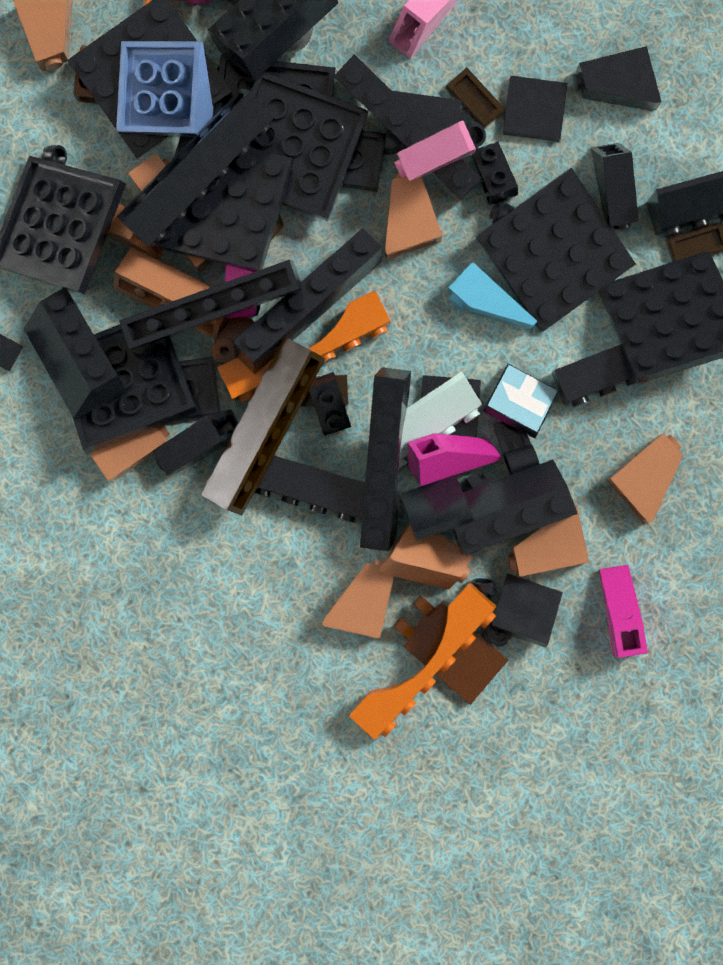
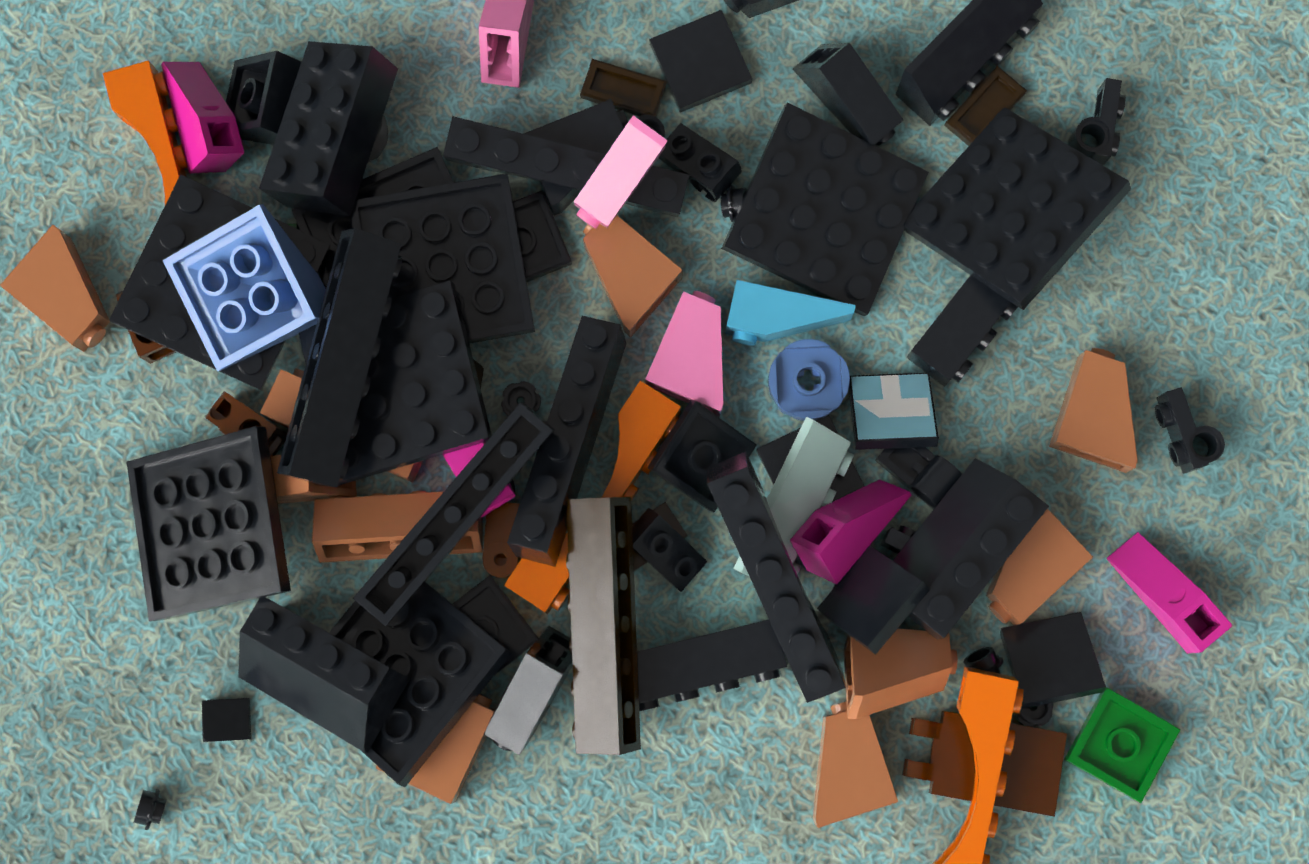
camera: 25 degrees left, 5 degrees down
(55, 151) = (157, 437): black hinge -> none
(110, 165) = (234, 416): none -> reddish brown leg
(300, 253) = (517, 390): none -> black plate
(386, 349) = (692, 446): none -> black tile
(416, 292) = (691, 354): none -> bright pink slope
(475, 335) = (825, 363): none -> medium blue plate
(538, 686) = (1122, 744): none -> green plate
(695, 506) = (1176, 416): none -> black plate

